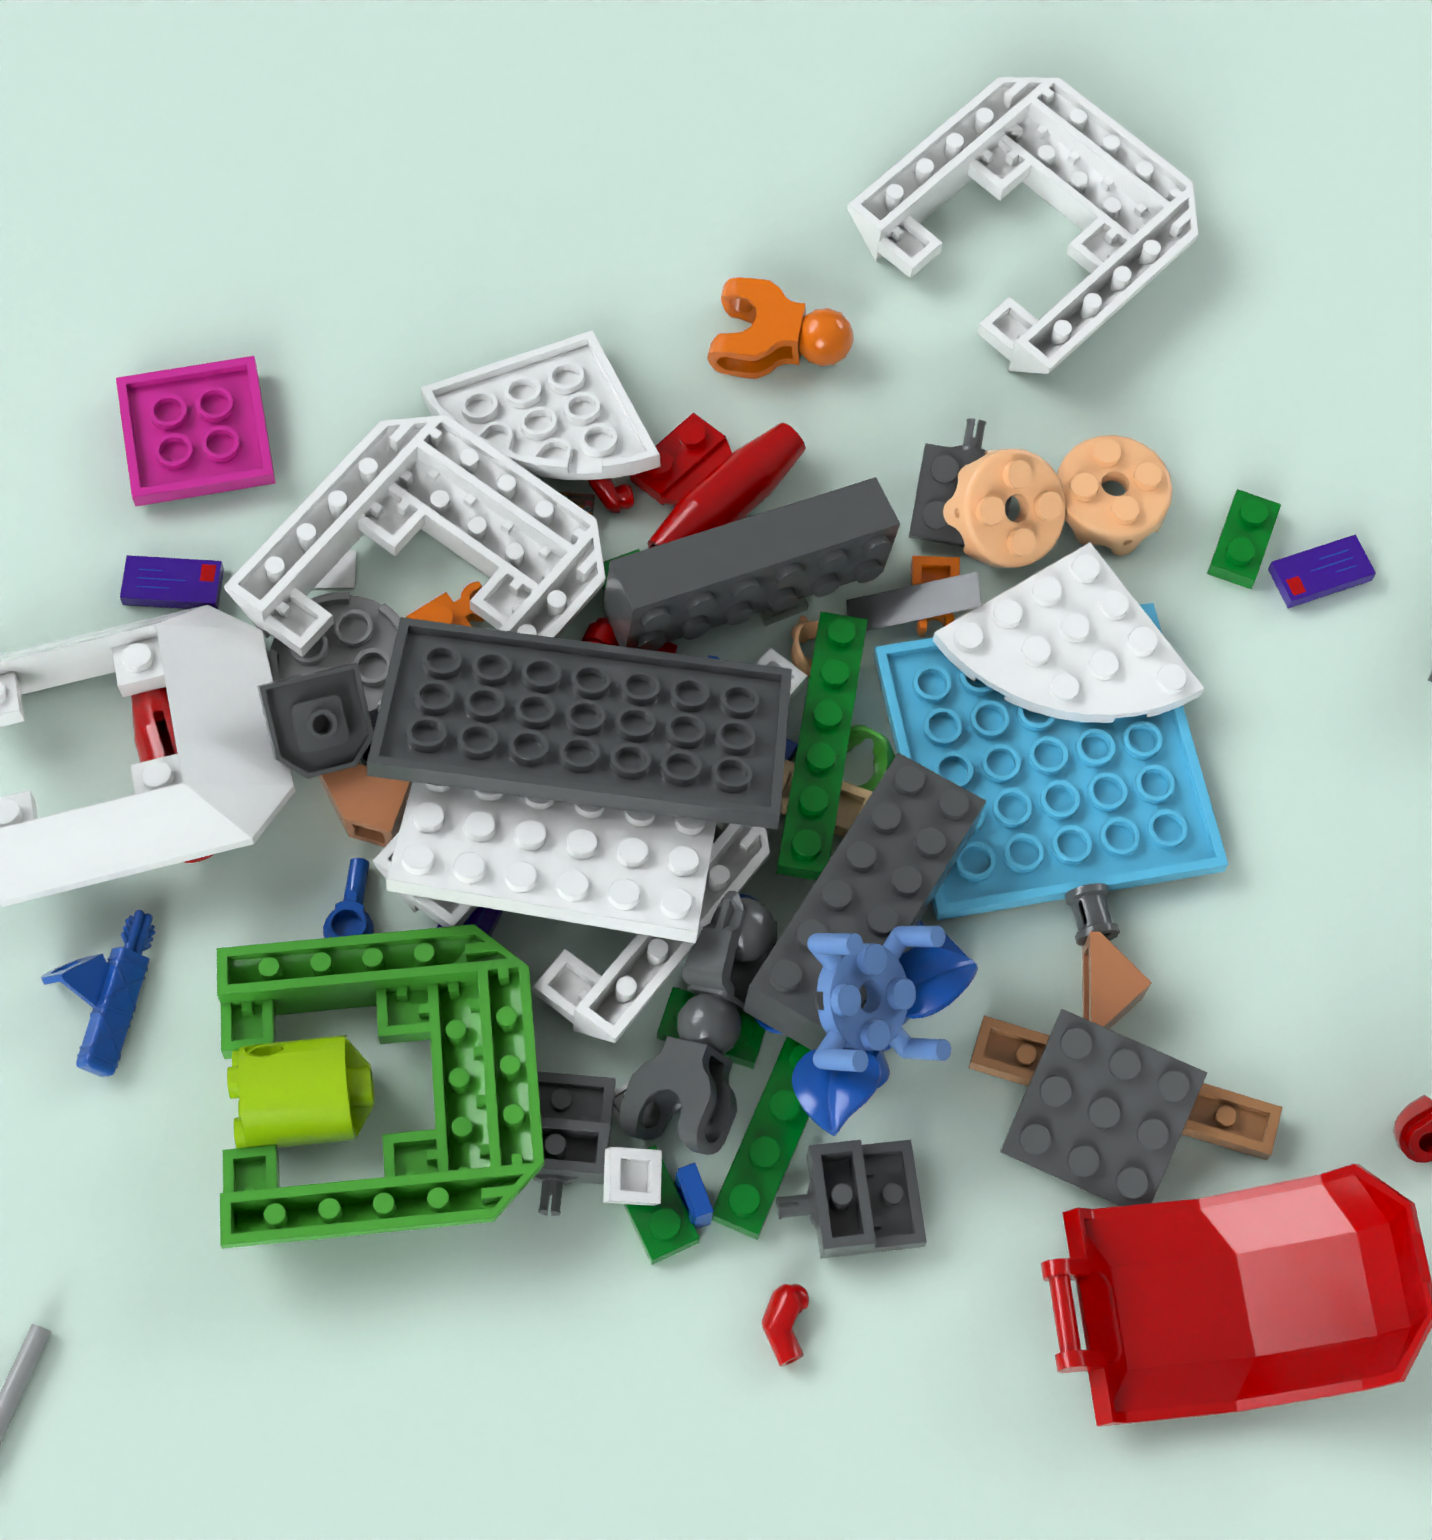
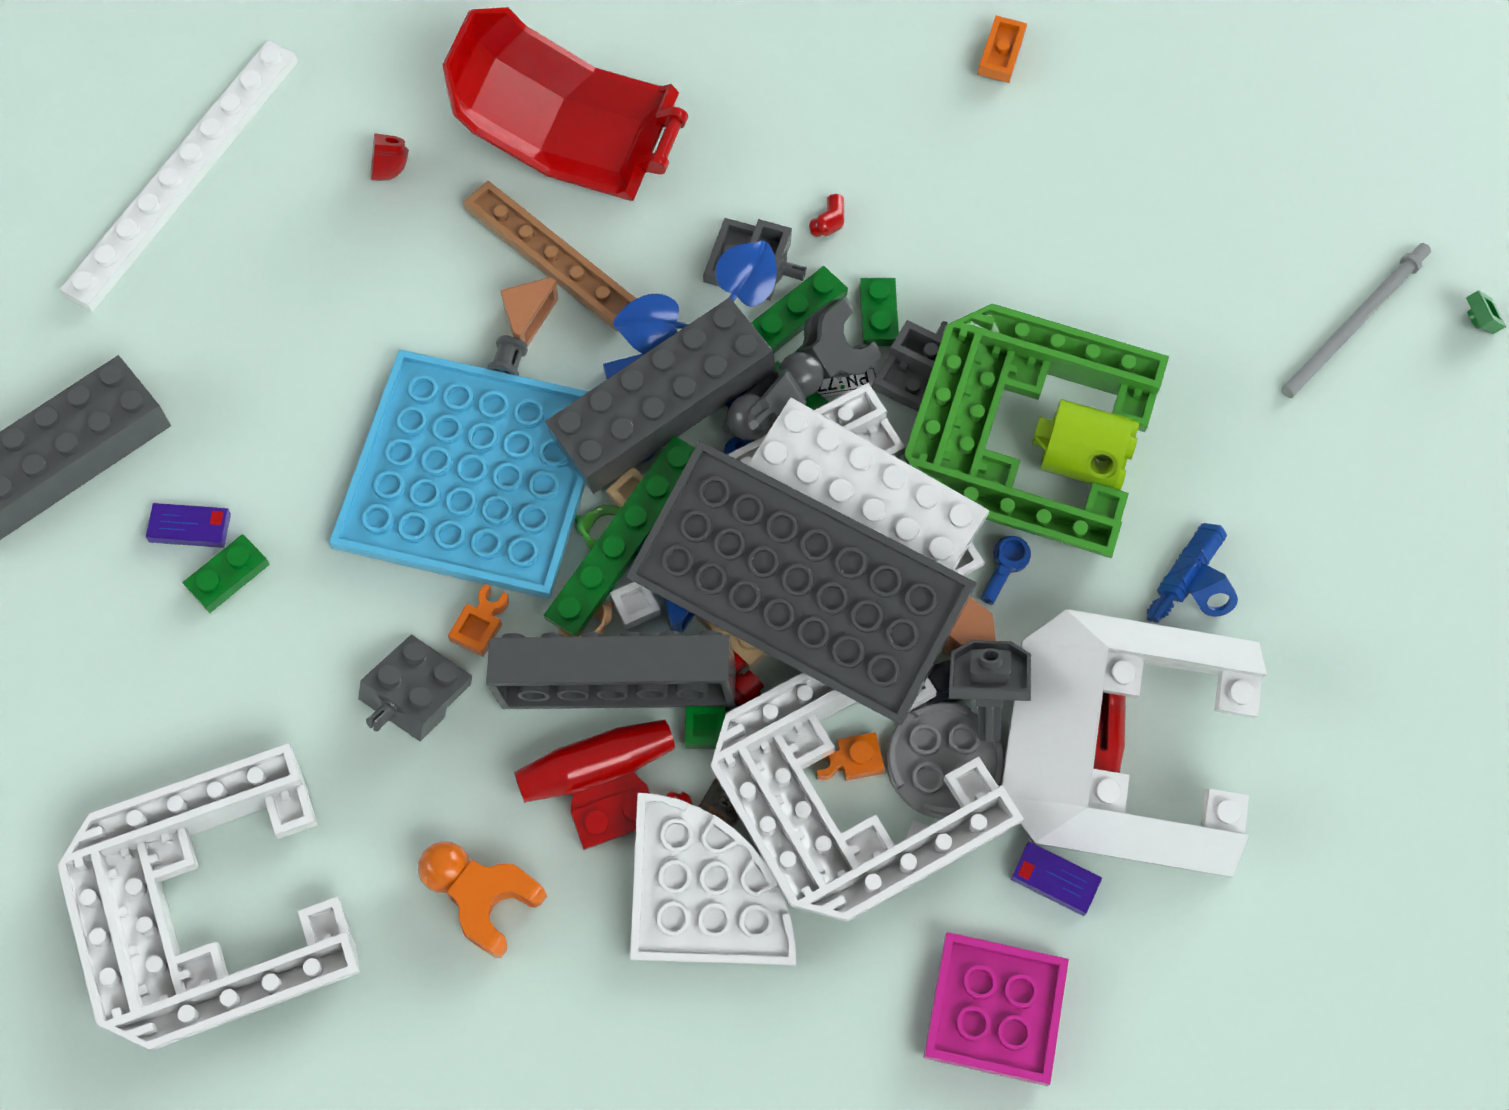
camera: 155 degrees left, 0 degrees up
(632, 1176) = (890, 310): white plate -> none
(694, 1196) = (855, 287): blue tile -> none
(847, 967) = (703, 308): medium blue plate -> none
(917, 601) = (497, 609): sticker -> none
(980, 502) = (393, 641): light nougat plate -> none
(1071, 646) = (410, 531): white plate -> none
(1103, 1111) = (575, 239): dark grey plate -> none
(1109, 519) = (304, 664): light nougat plate -> none

